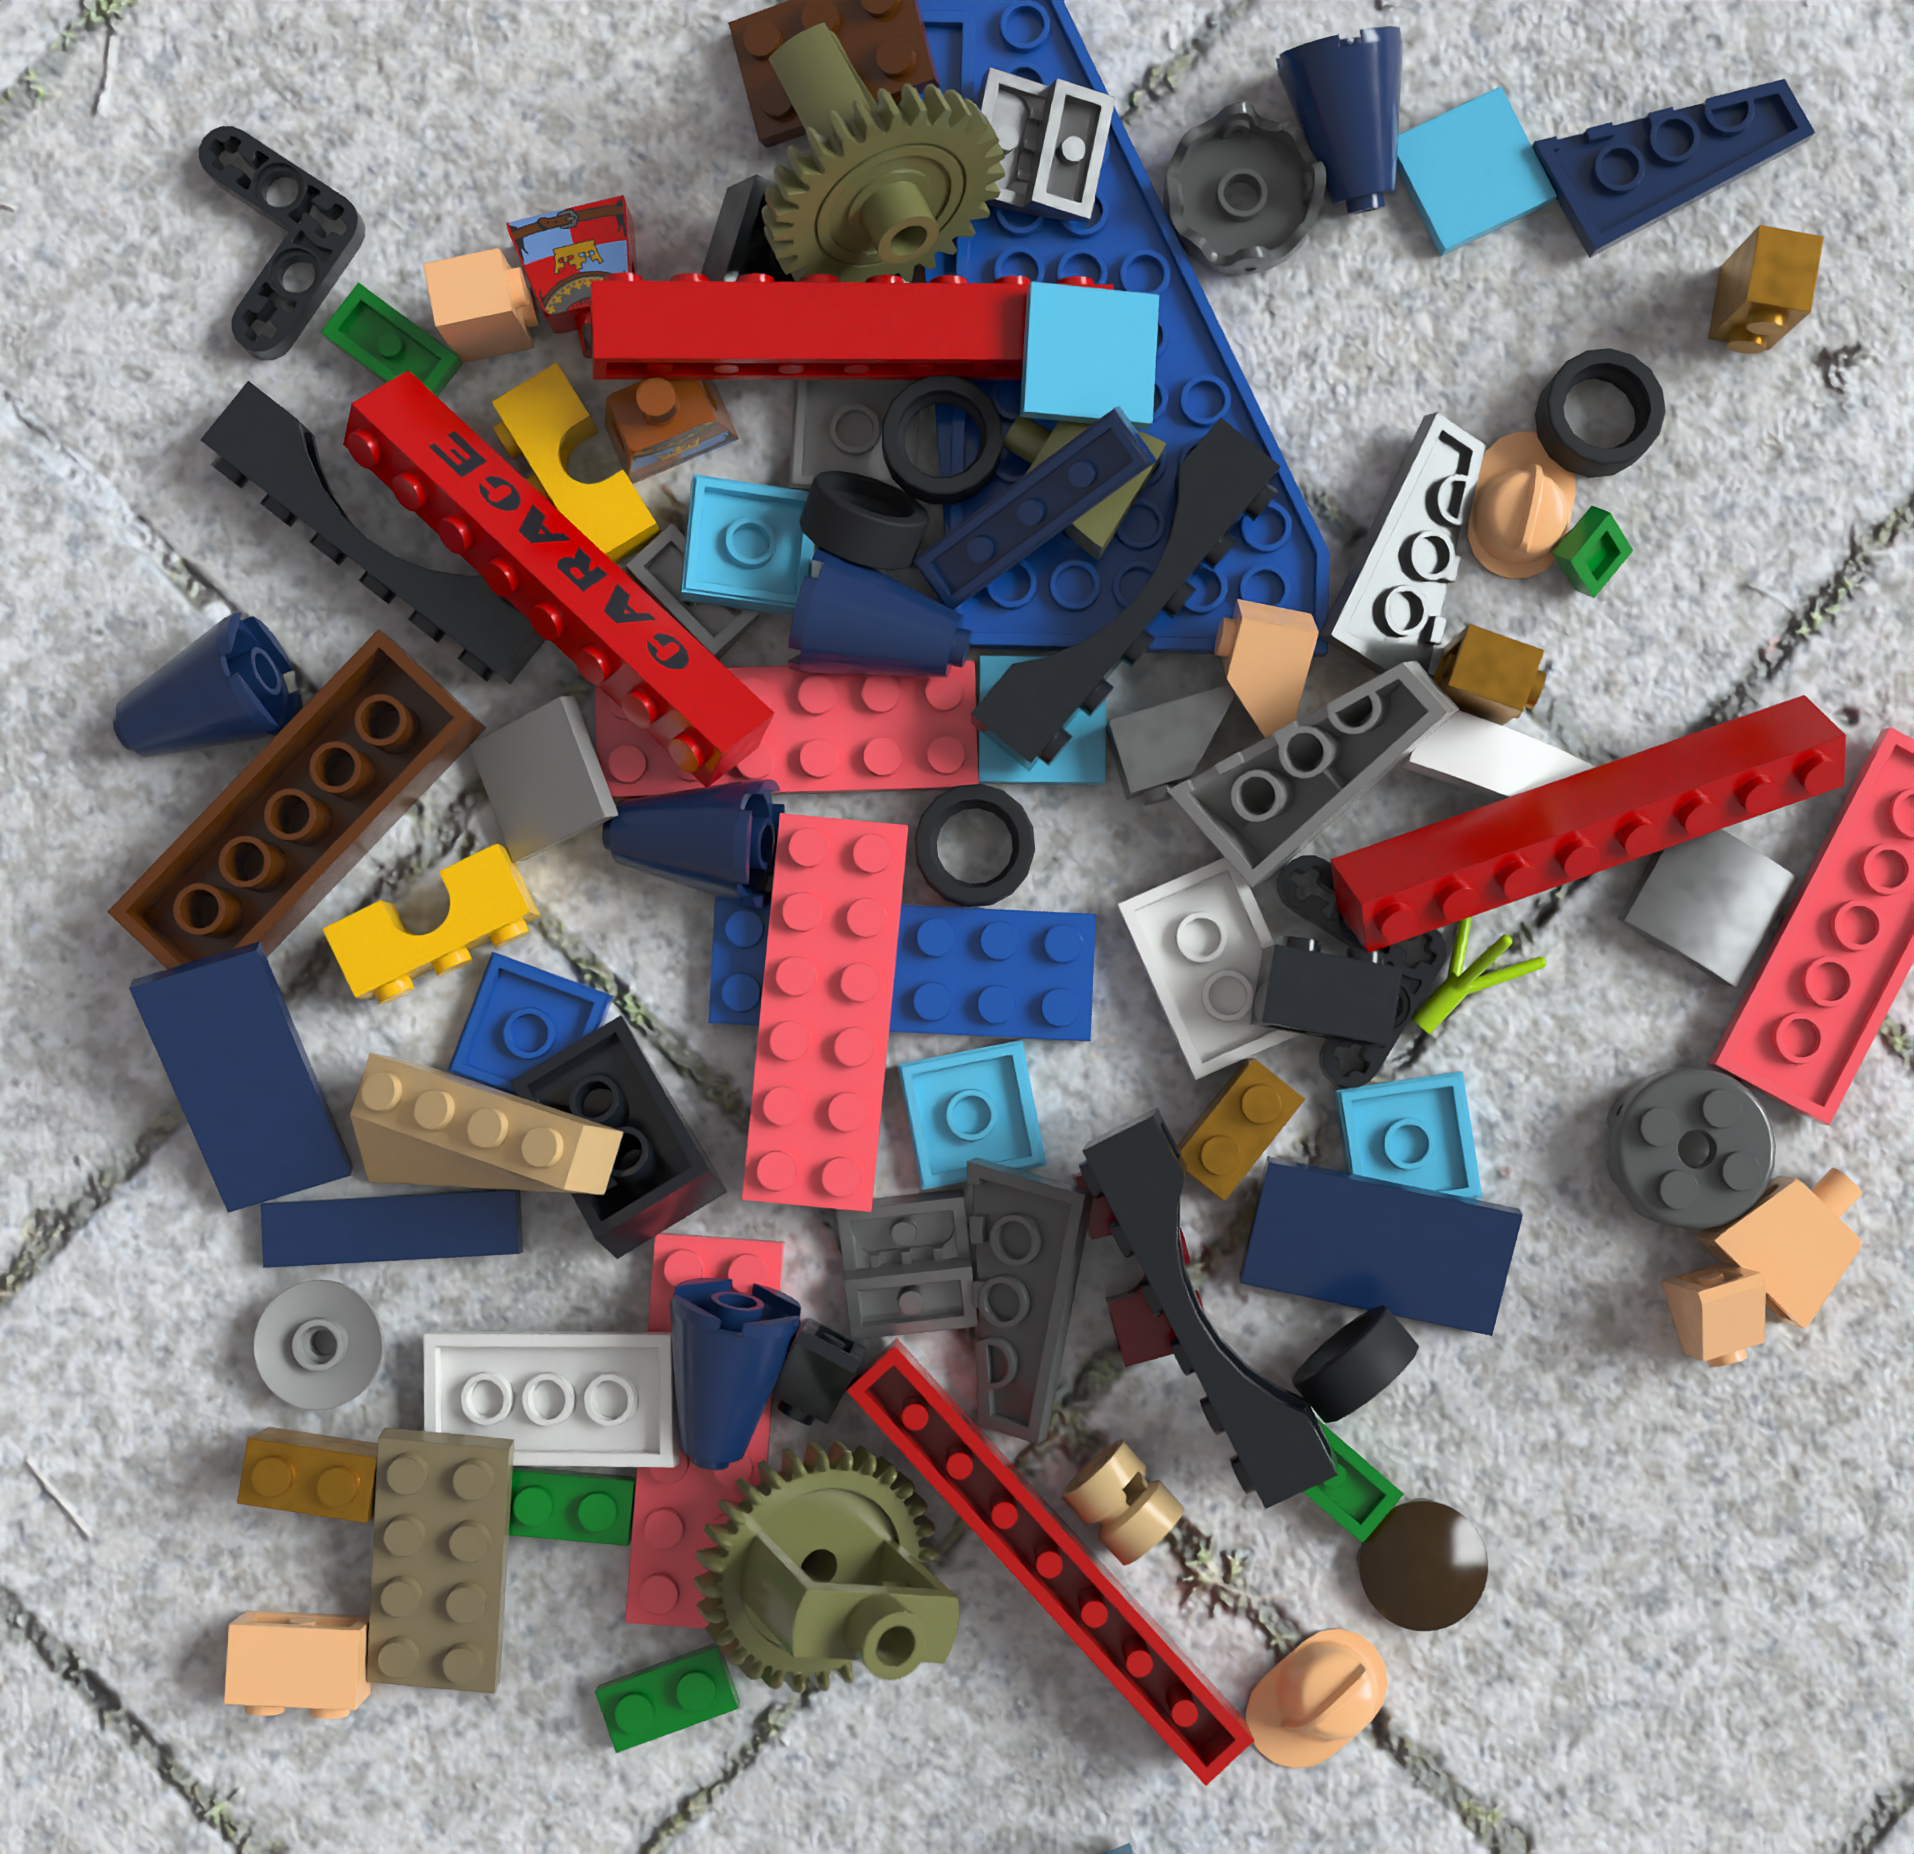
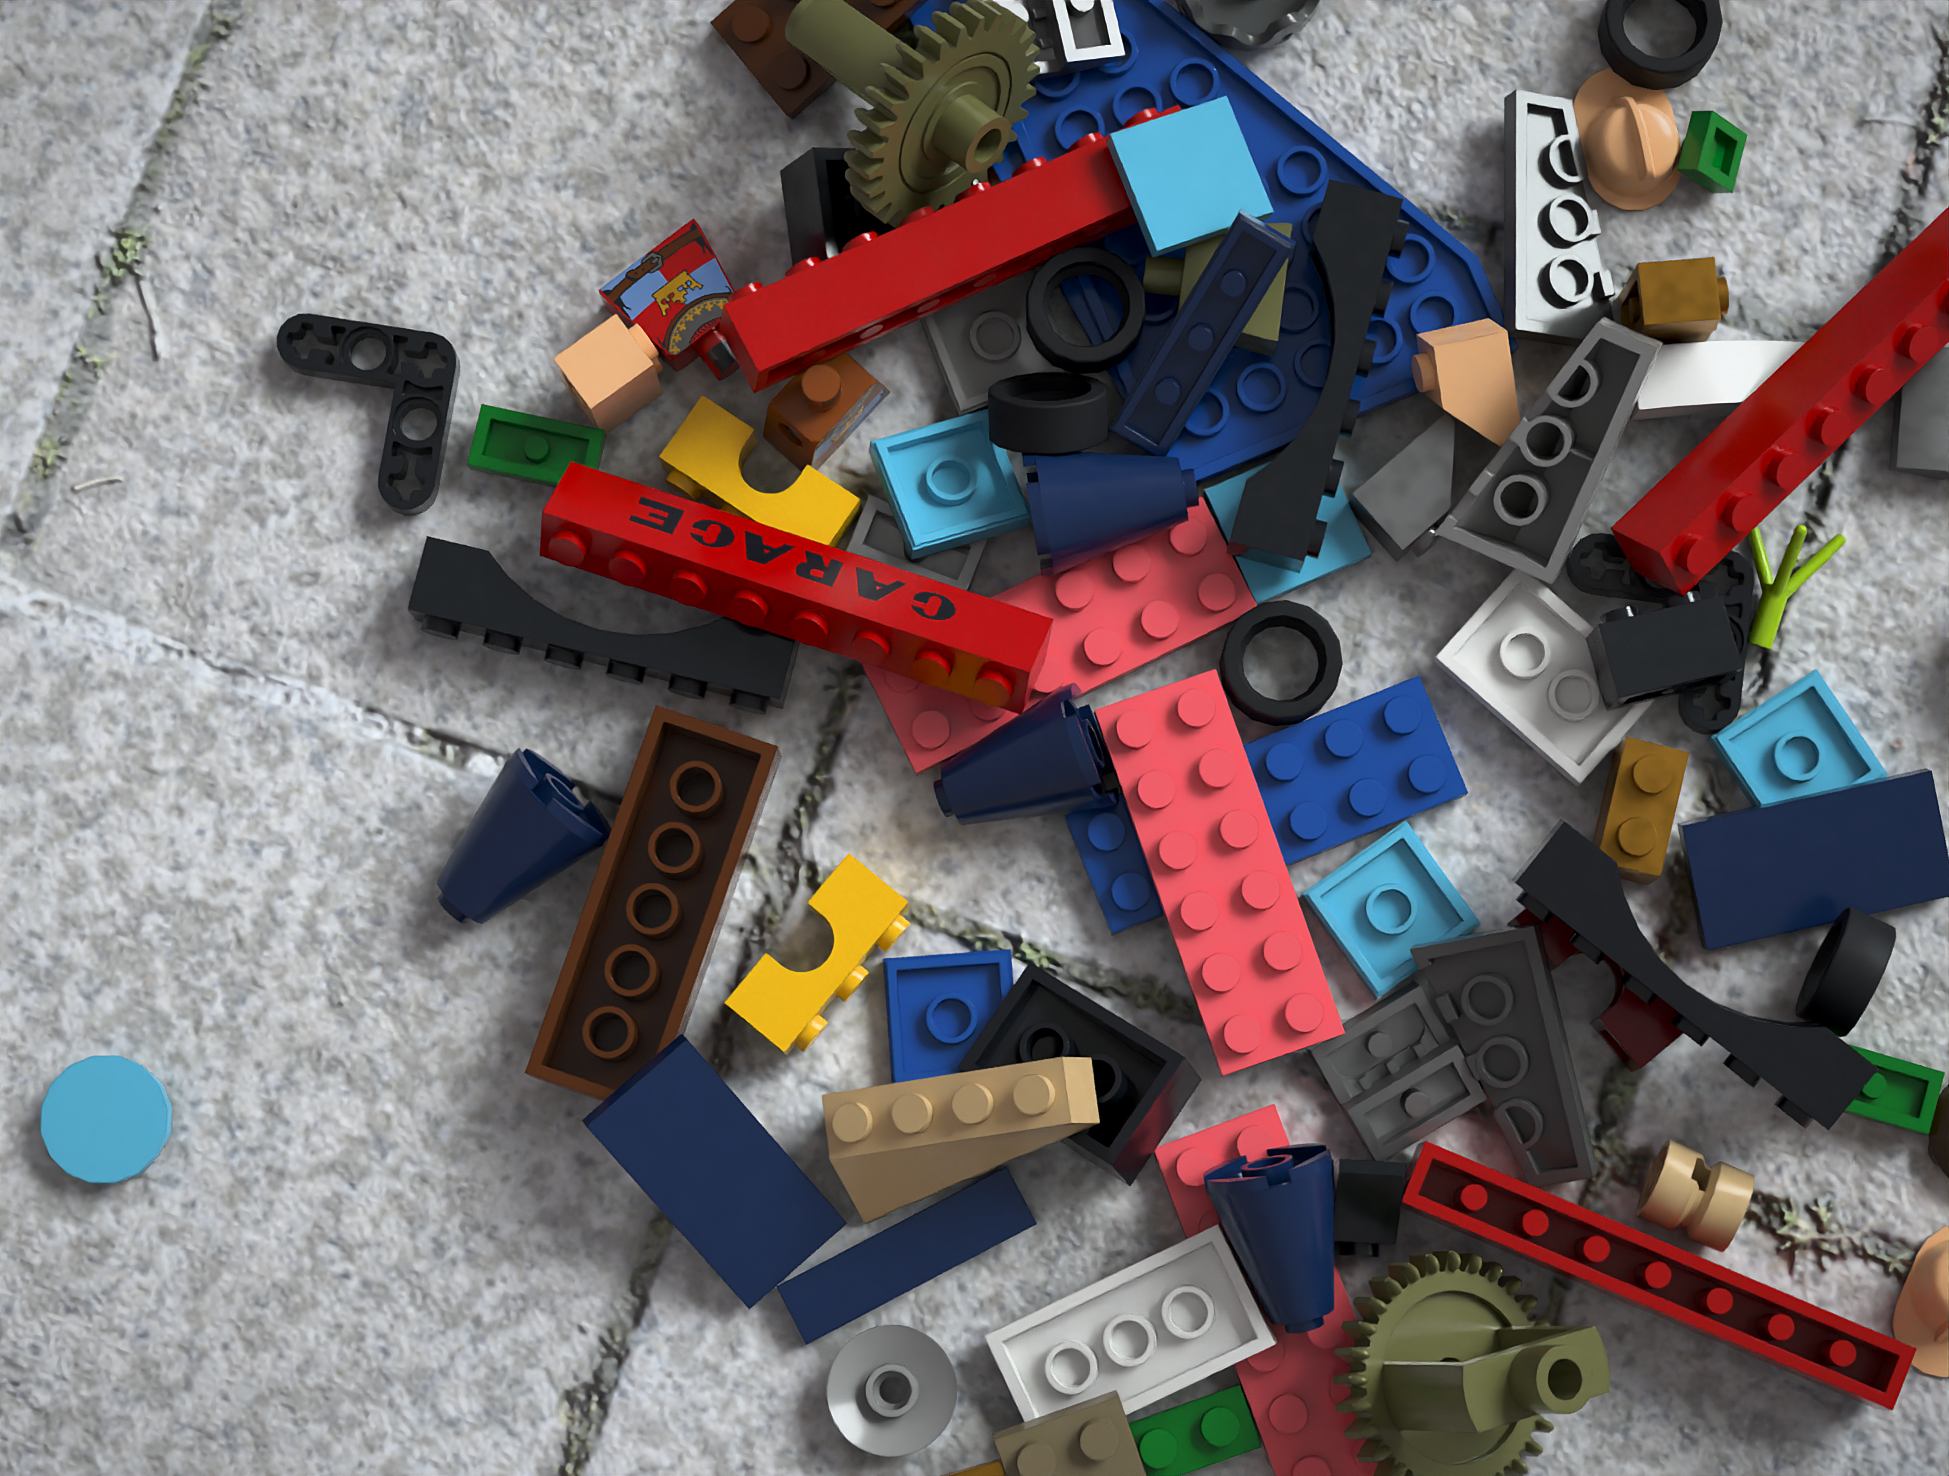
camera: 25 degrees left, 5 degrees down
(543, 779) = (861, 777): light grey tile -> none

